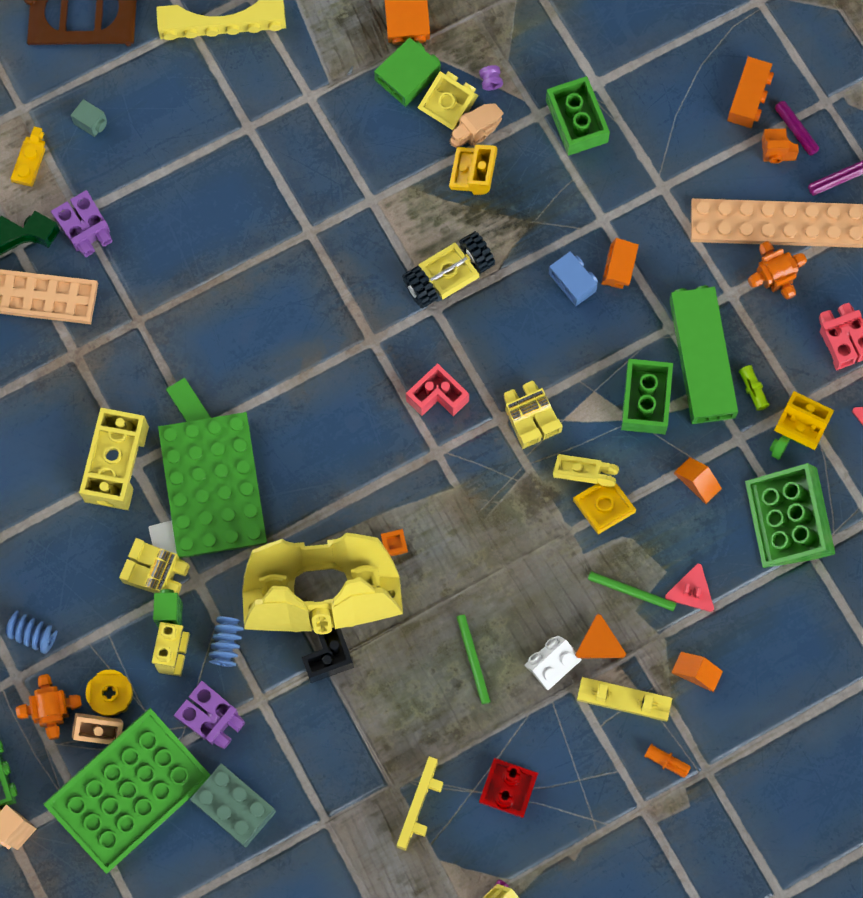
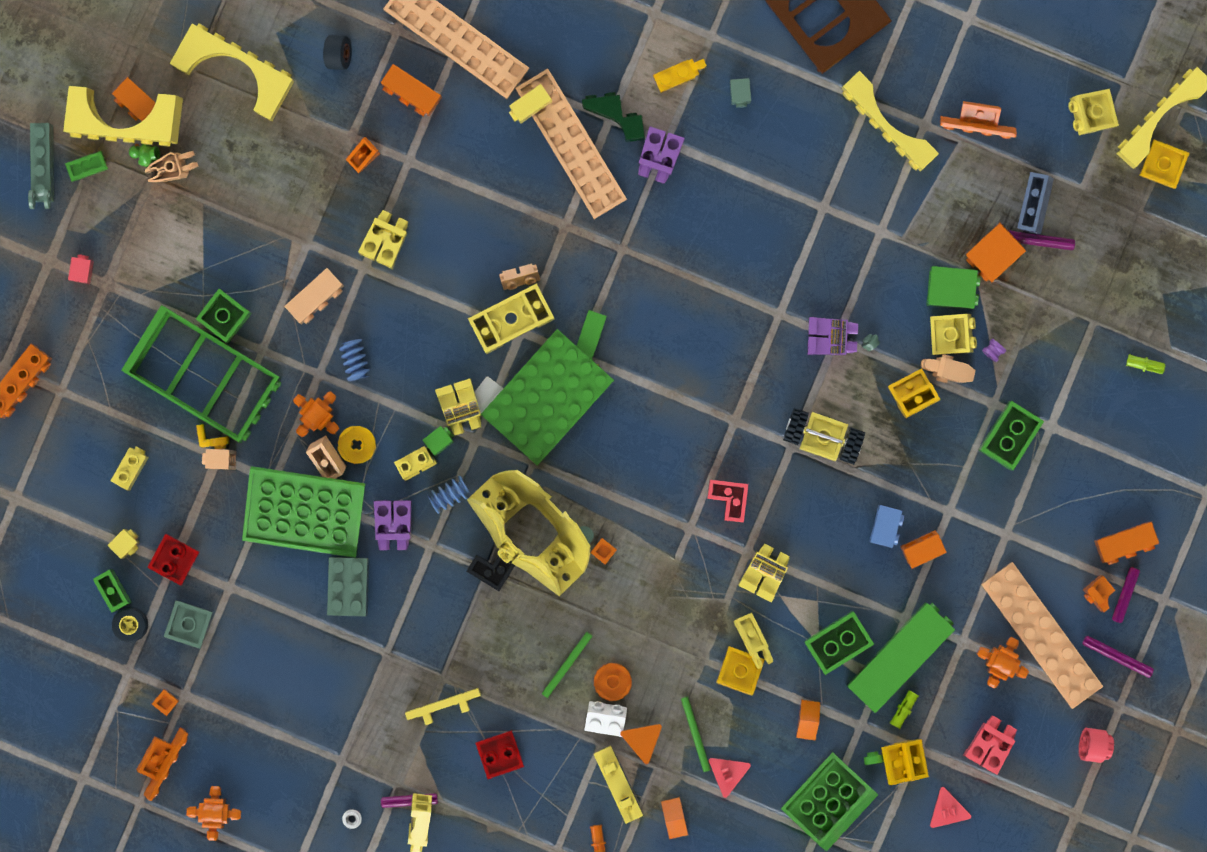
camera: 55 degrees right, 15 degrees up
(82, 435) = (511, 280): none -> light nougat hinge
(365, 201) = (836, 333): none -> medium lavender hips
(398, 172) = (870, 342): none -> sand green plate
(522, 629) = (612, 681): none -> orange tile

